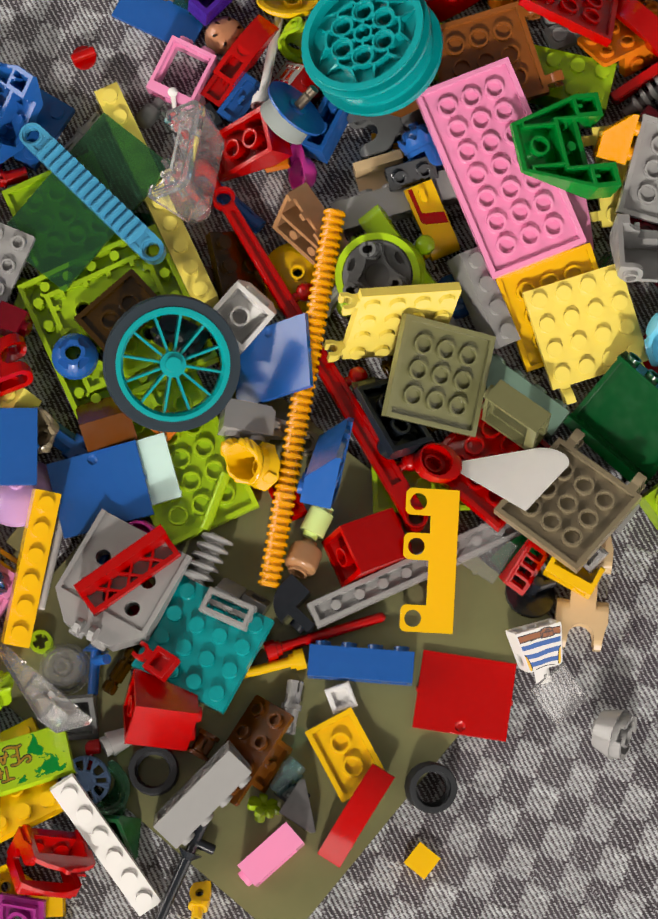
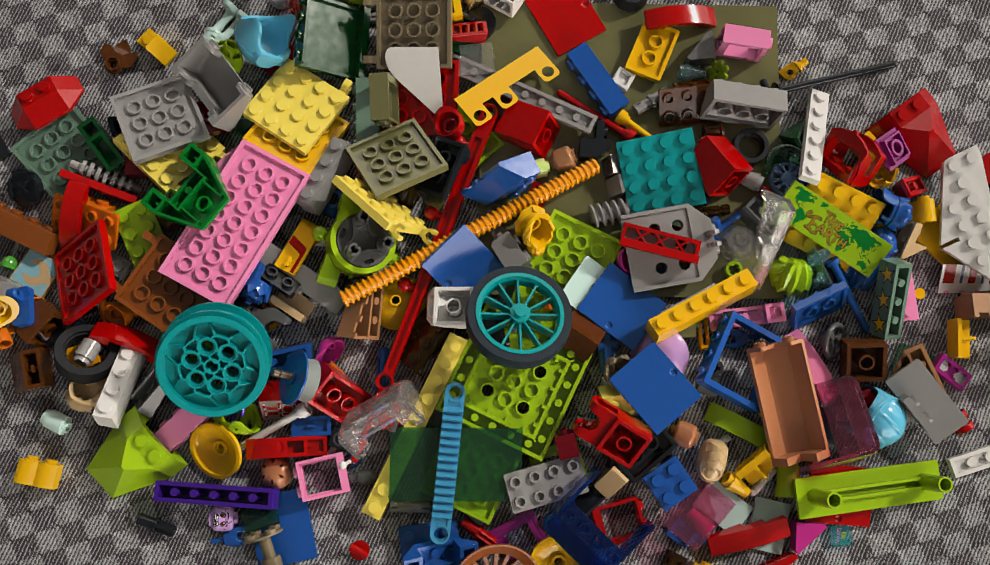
camera: 135 degrees left, 5 degrees up
(79, 367) = (545, 387): blue piece -> none
(107, 308) = (507, 383): dark brown plate -> none
(157, 662) = (695, 182): red plate -> none
(215, 501) = (573, 234): lime piece -> none
(226, 619) = (623, 171): light grey tile -> none
(616, 140) = (162, 168): light orange slope -> none

